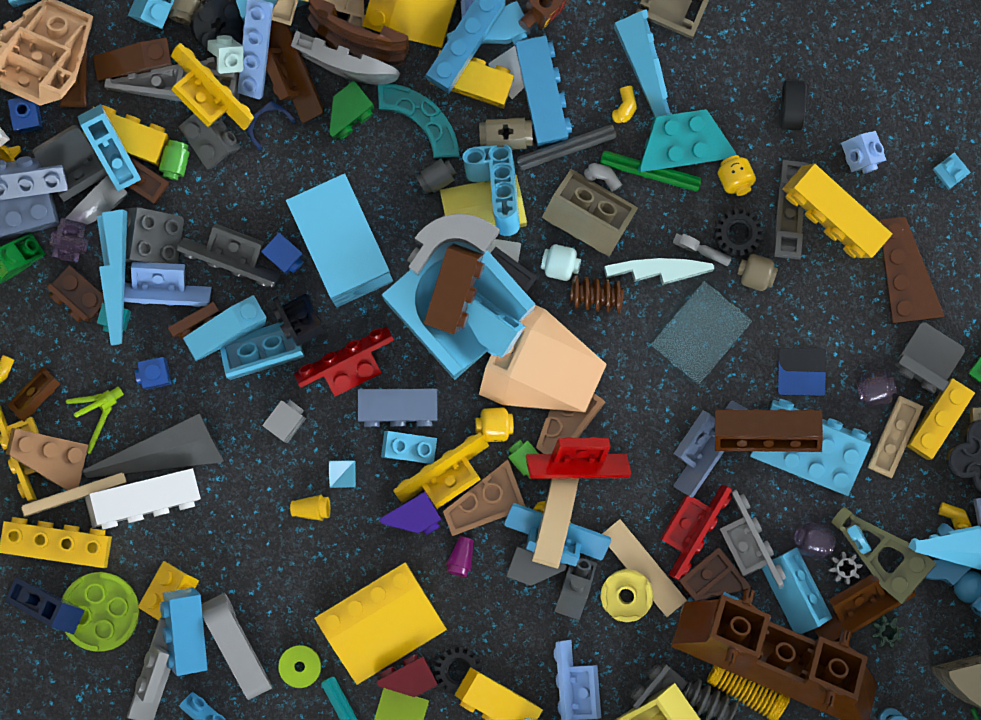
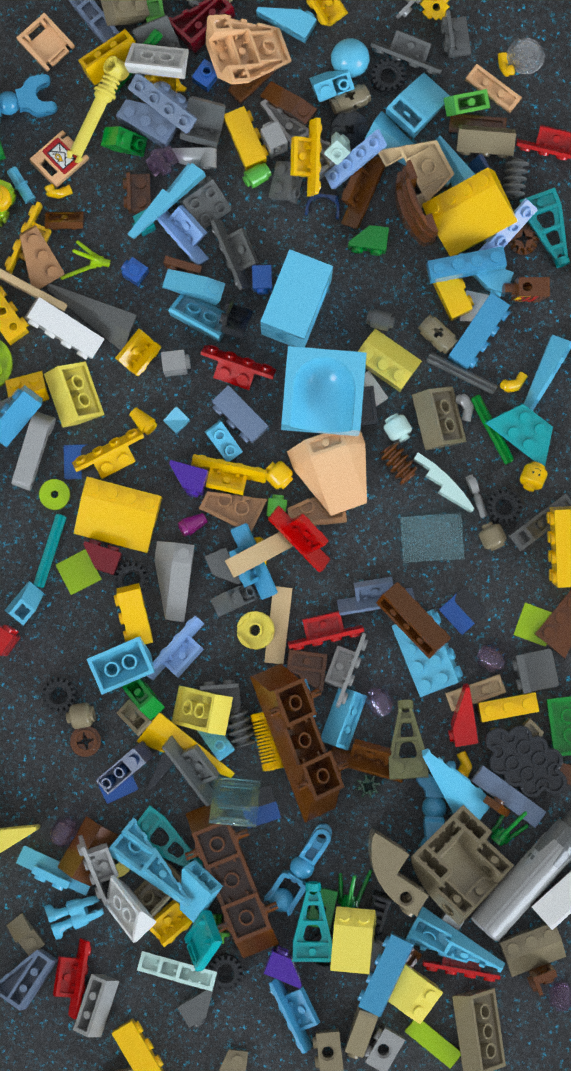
camera: 45 degrees right, 0 degrees up
(108, 147) = (229, 134): medium azure slope -> none
(151, 185) = (229, 167): reddish brown plate -> none
(155, 108) = (274, 139): none -> light grey brick
(217, 551) = (73, 394): none -> light yellow slope
(238, 447) = (138, 352): none -> yellow bracket
(291, 608) = (71, 452): none -> blue sticker
(315, 573) = (110, 456): none -> yellow bracket
(360, 69) = (398, 225): light grey slope -> none
(424, 113) = (407, 282): teal tile -> none
(450, 228) = (355, 347): light grey arch -> none
(454, 289) = (327, 380): reddish brown brick -> none
(493, 326) = (327, 417): medium azure slope -> none
(493, 623) = (174, 571): none -> light grey wedge
(497, 166) = (415, 348): medium azure beam -> none
(839, 562) = (385, 730): light grey gear -> none
(857, 535) = (403, 721): medium azure tile -> none
(876, 317) = (530, 621): none -> lime sticker
(913, 477) = (463, 725): none -> red slope

